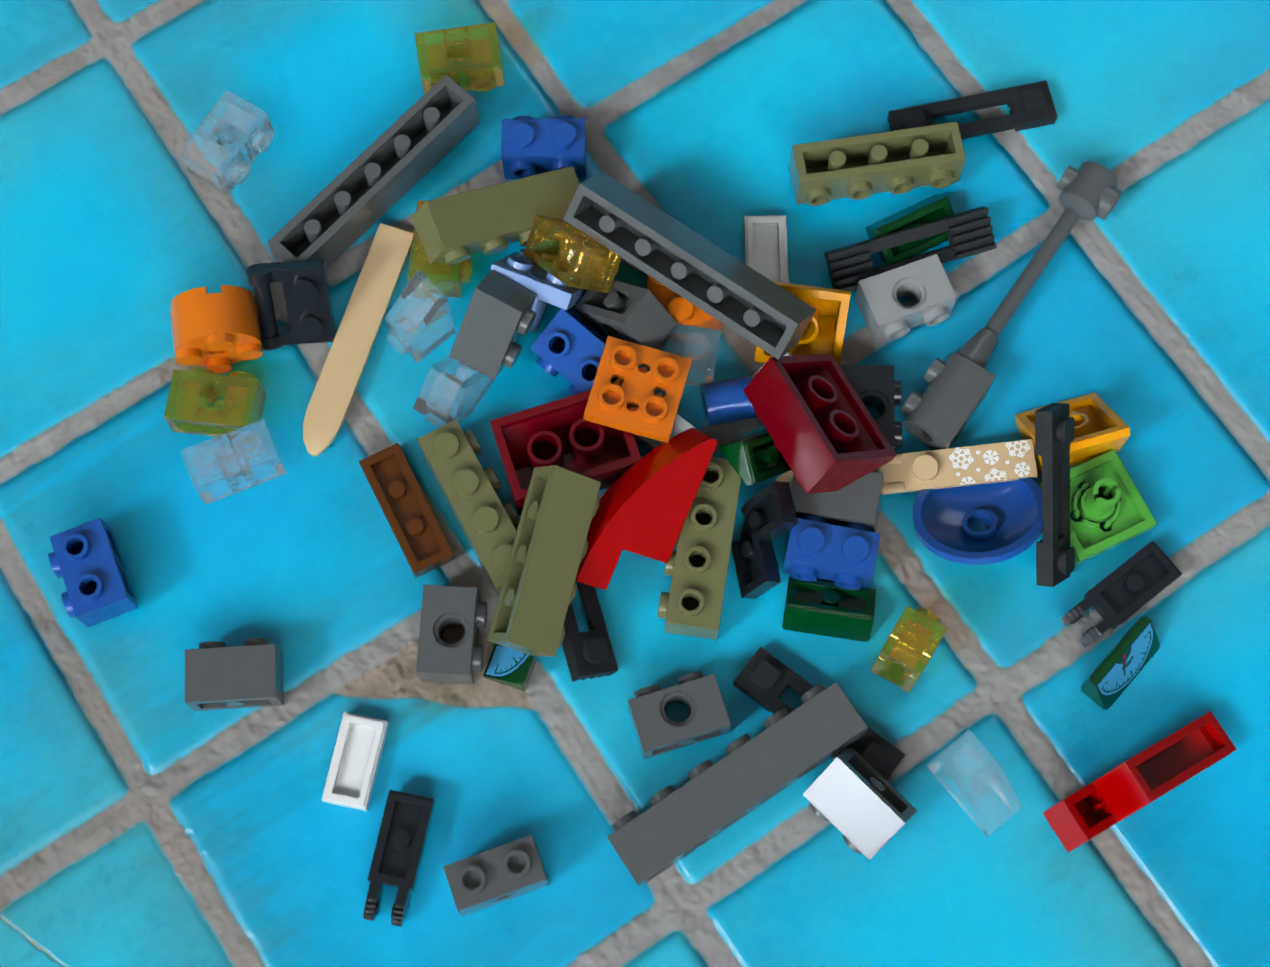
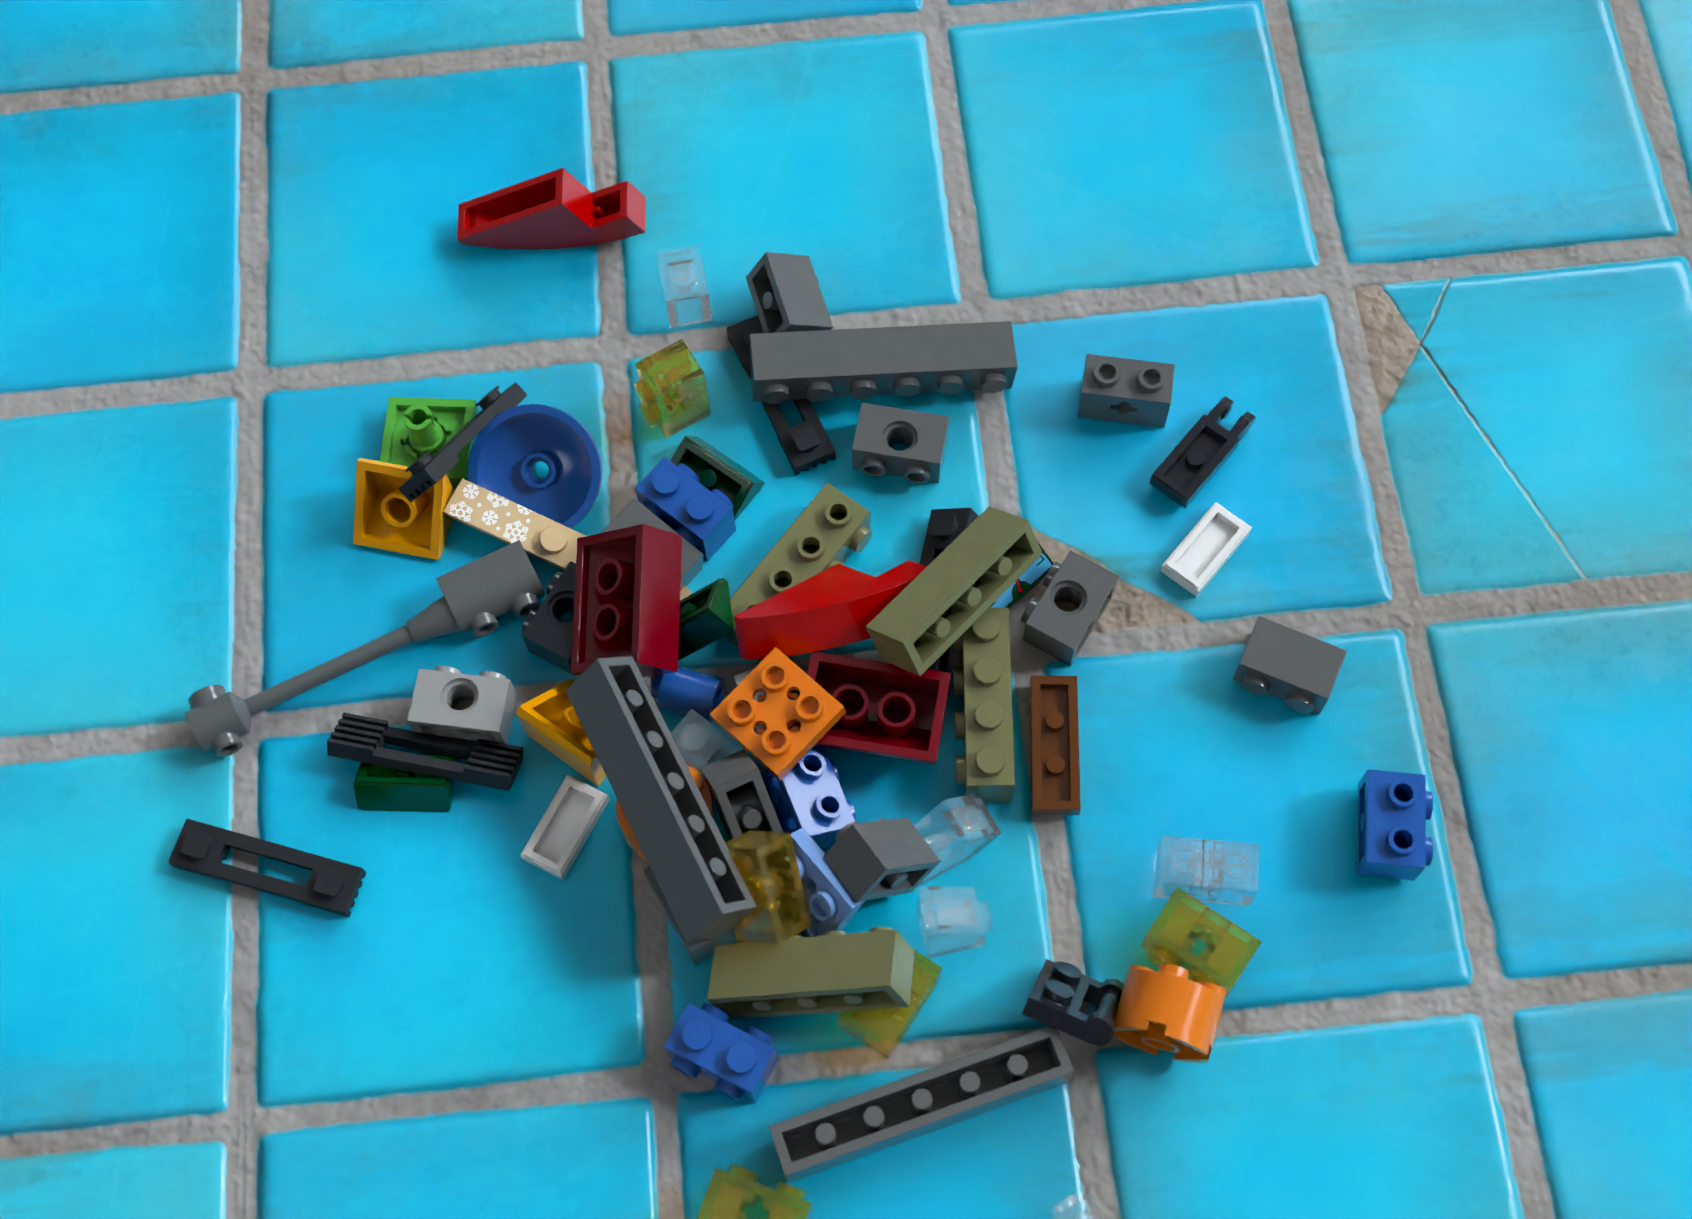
camera: 150 degrees left, 5 degrees down
(355, 337) = (1017, 956): tan piece -> none
(767, 517) = (738, 553): black plate -> none
(876, 164) = (398, 848): olive brick -> none
(1122, 664) = (501, 316): slope -> none
(1125, 591) = (459, 362): black hinge -> none

